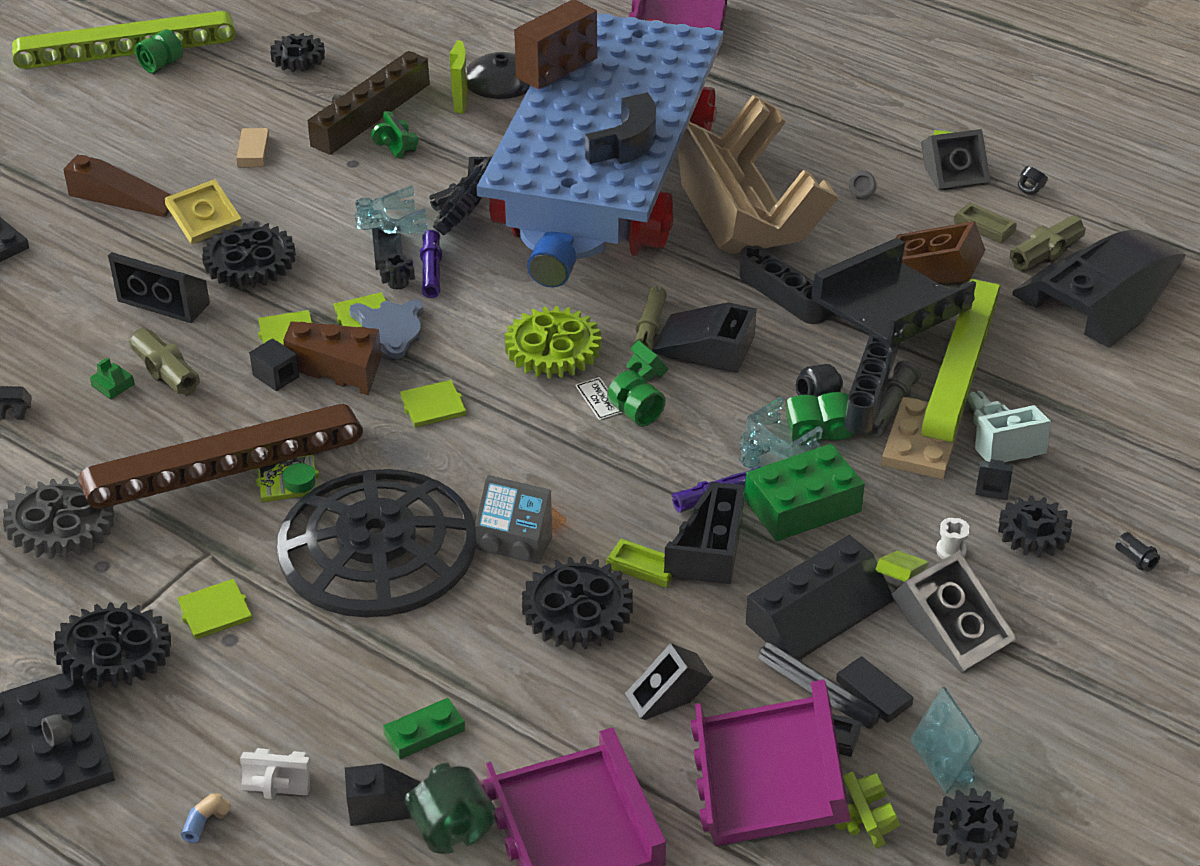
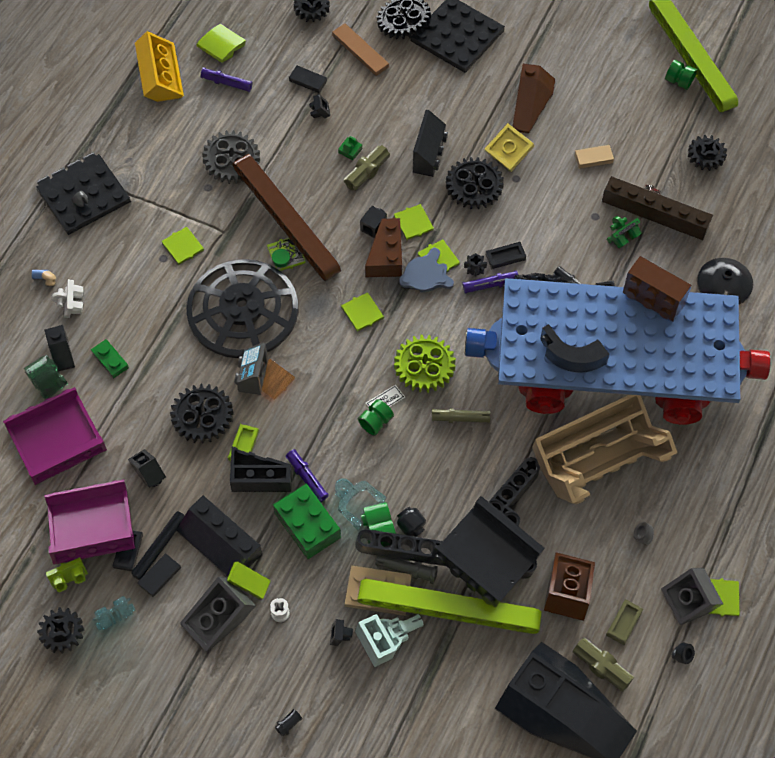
camera: 80 degrees right, 20 degrees up
(112, 644) = (156, 216): black gear -> none
(372, 213) = (527, 240): clear light blue piece -> none
(459, 77) = (692, 254): lime slope -> none
(647, 360) = (416, 419): green tile -> none
(709, 335) = (445, 450): black slope -> none
(1035, 526) = (306, 660): black gear -> none

